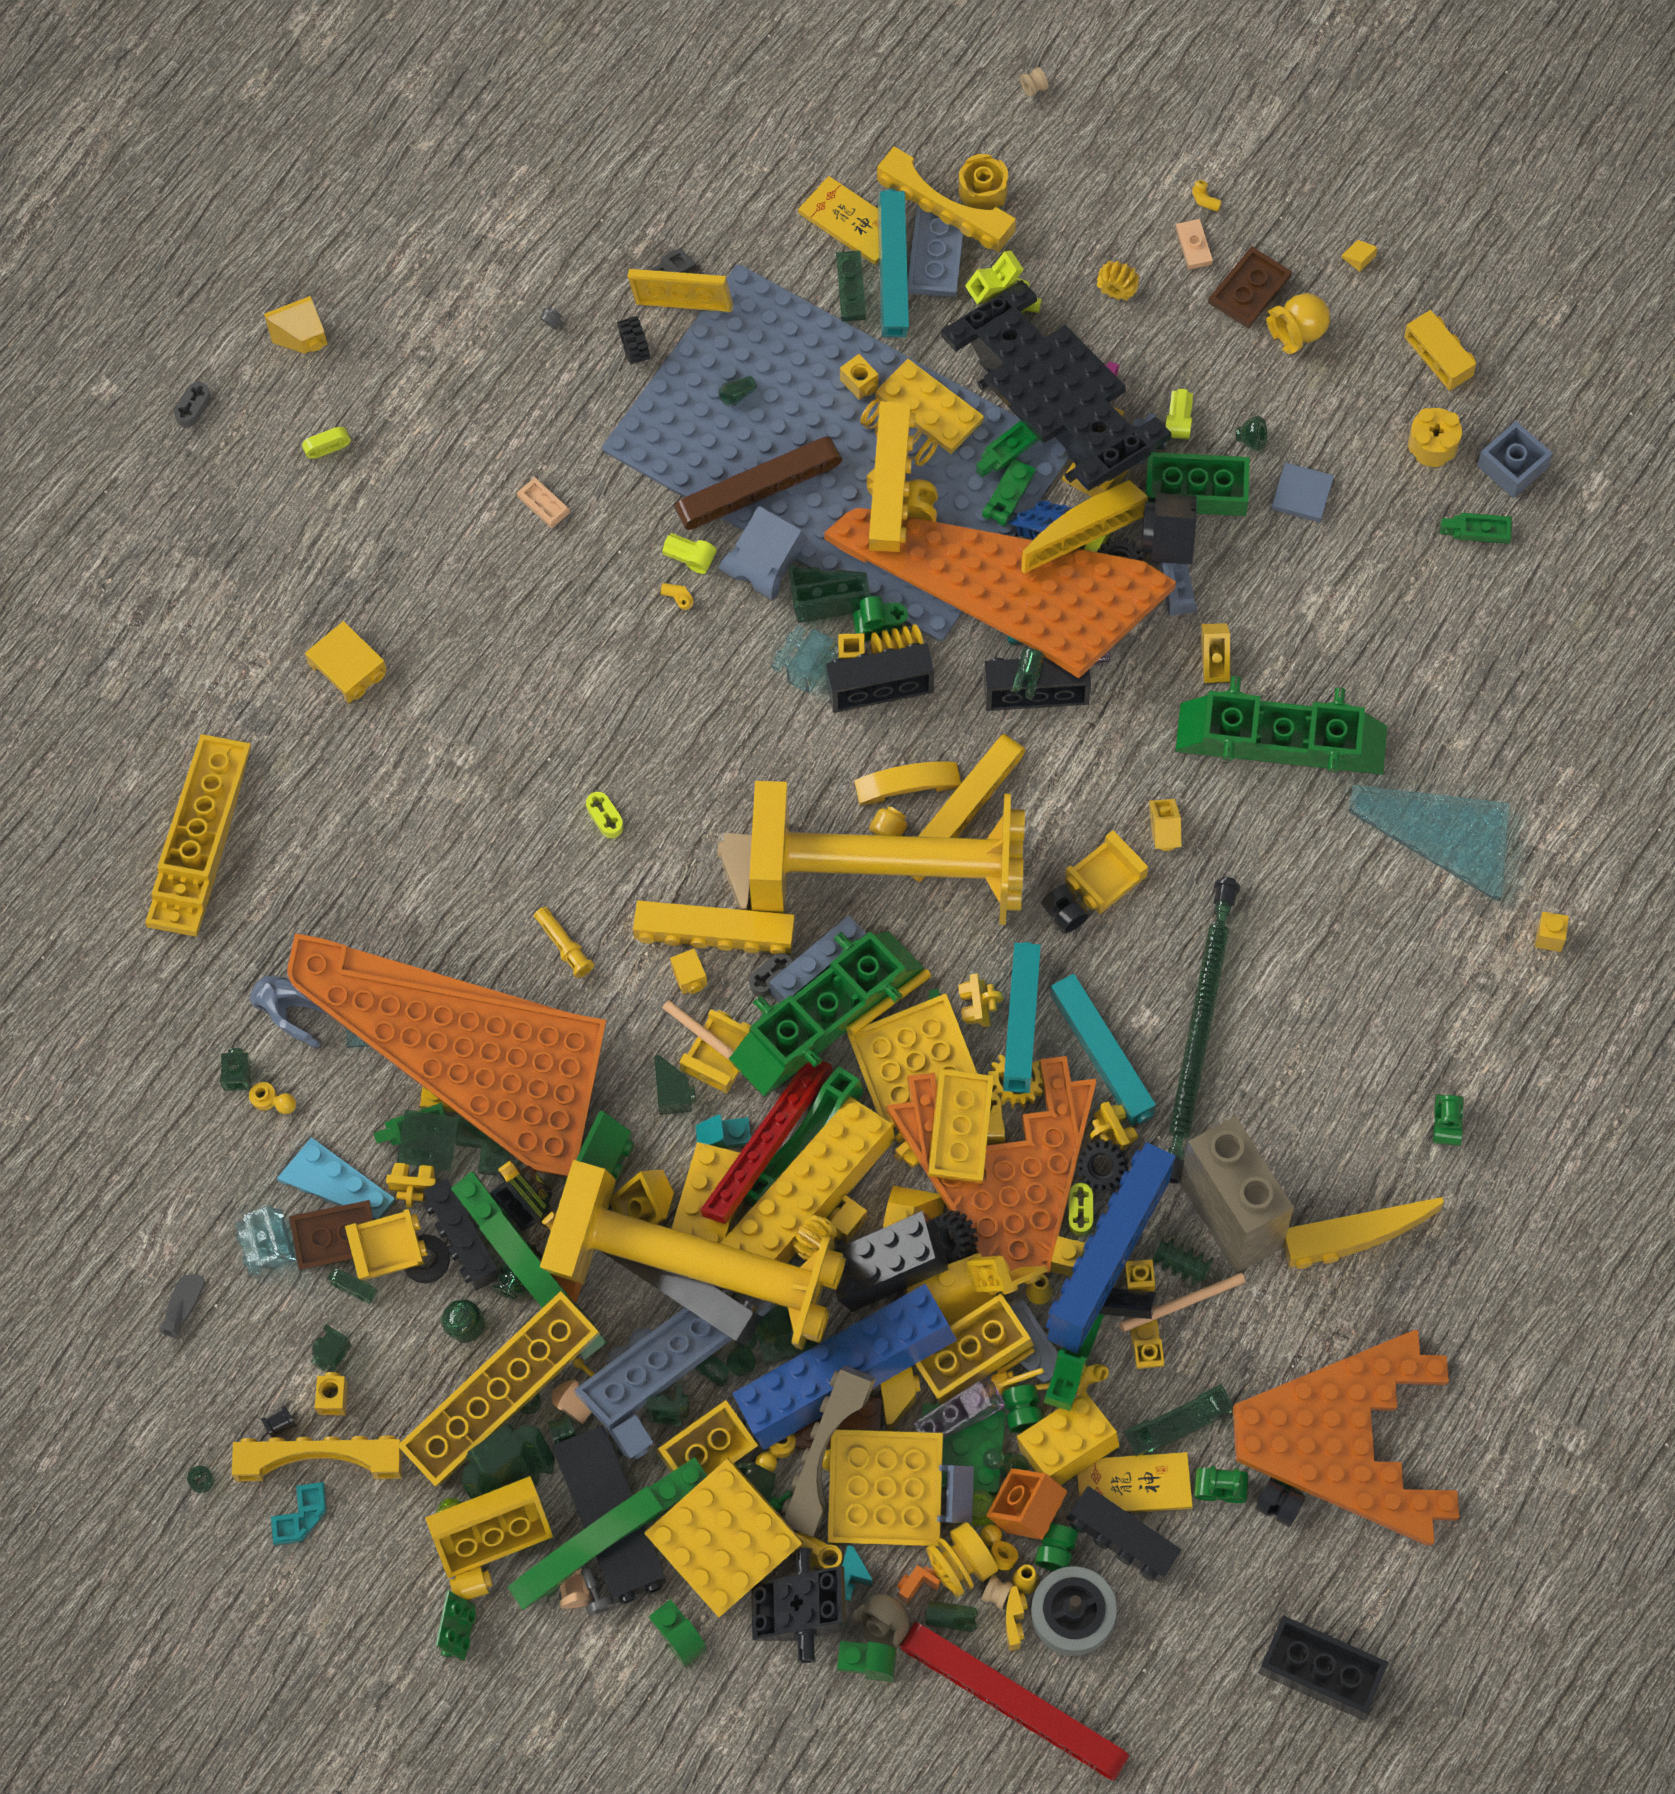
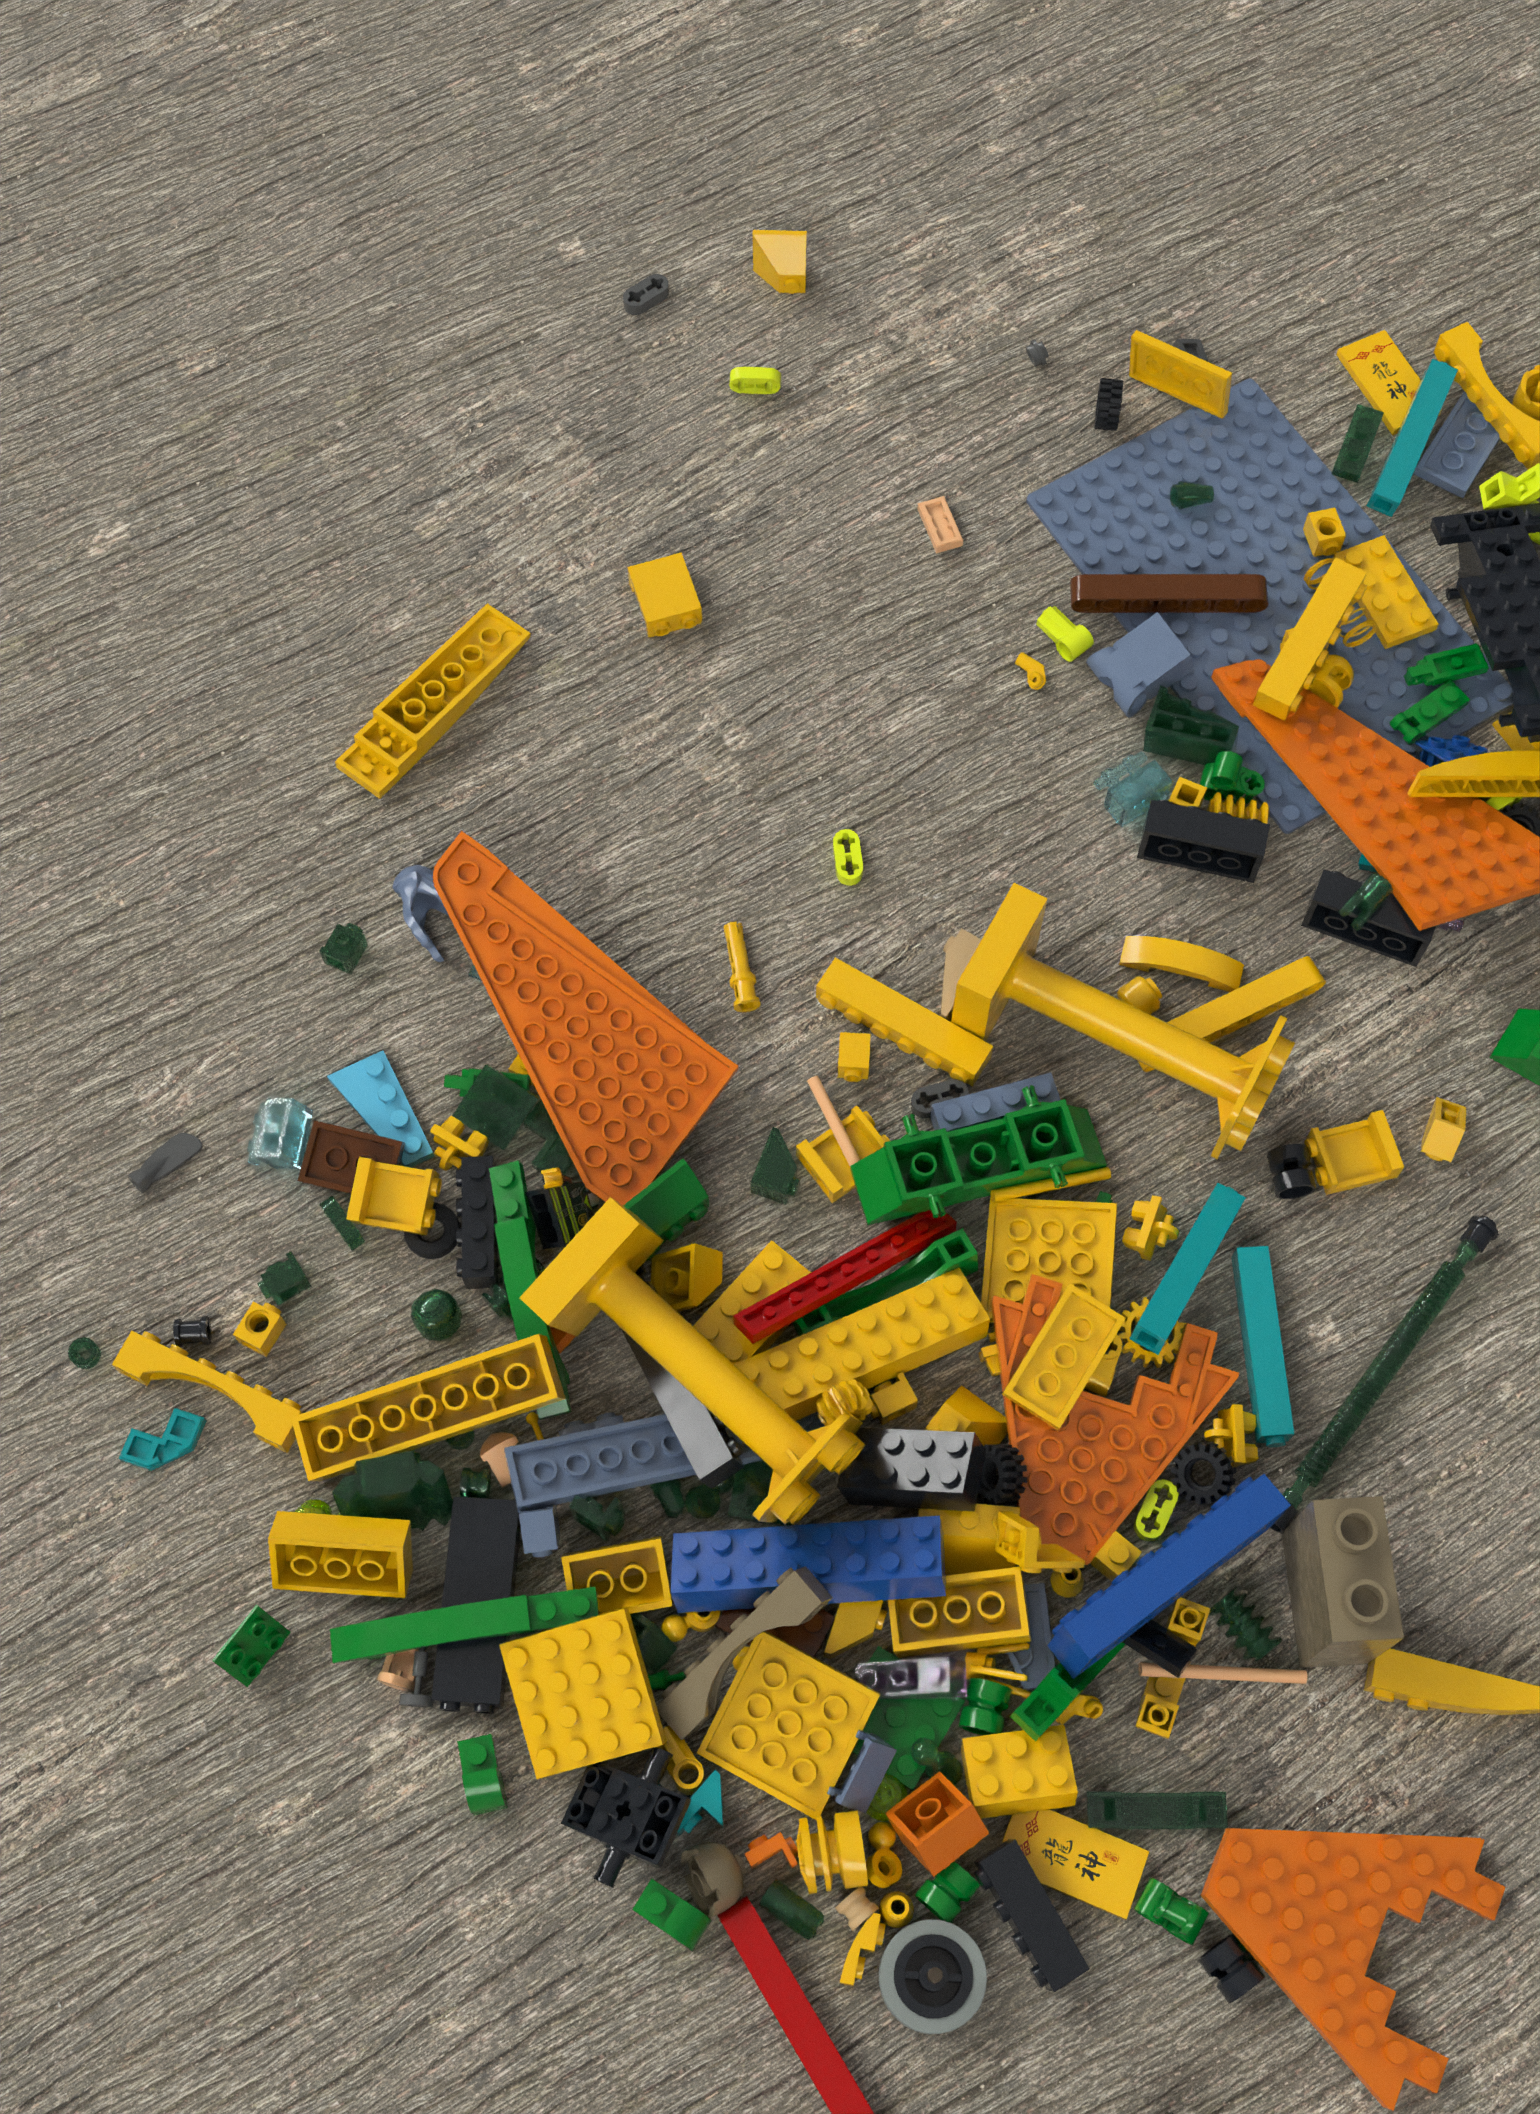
camera: 25 degrees right, 0 degrees up
(284, 1103) = (374, 1002): yellow plate -> none
(472, 1583) = (295, 1606): yellow brick -> none
(724, 1133) = (806, 1243): teal slope -> none

